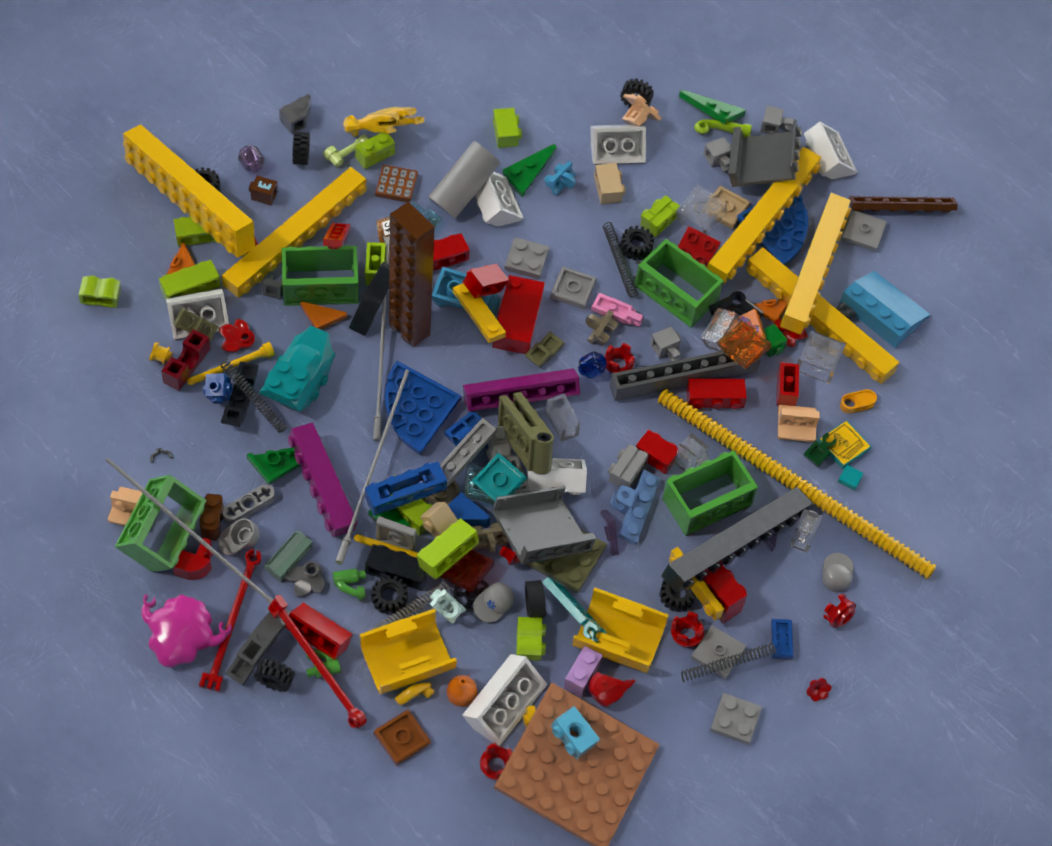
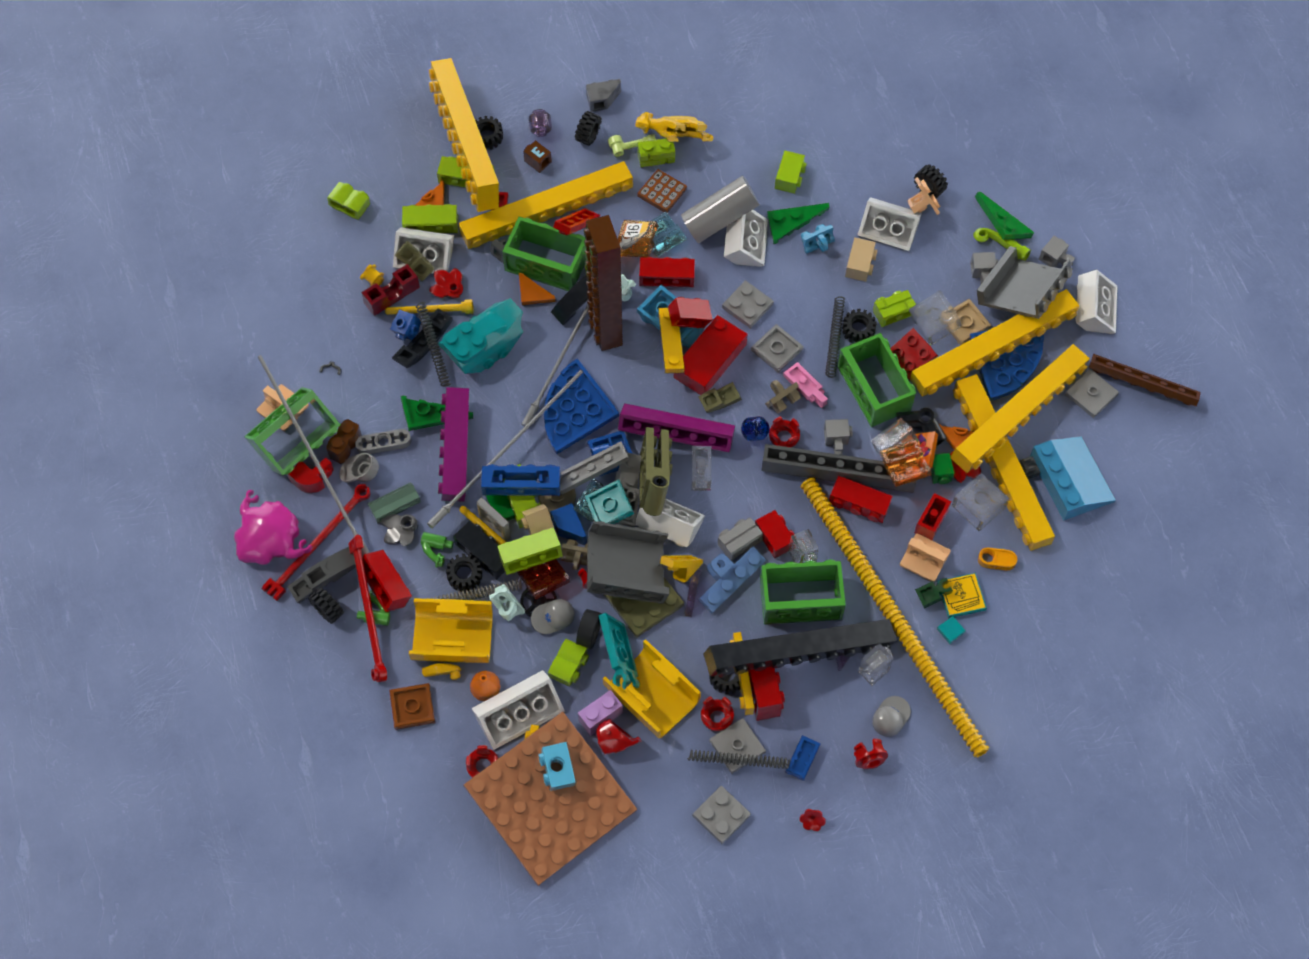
camera: 30 degrees right, 5 degrees up
(590, 511) = (682, 565): none -> yellow slope

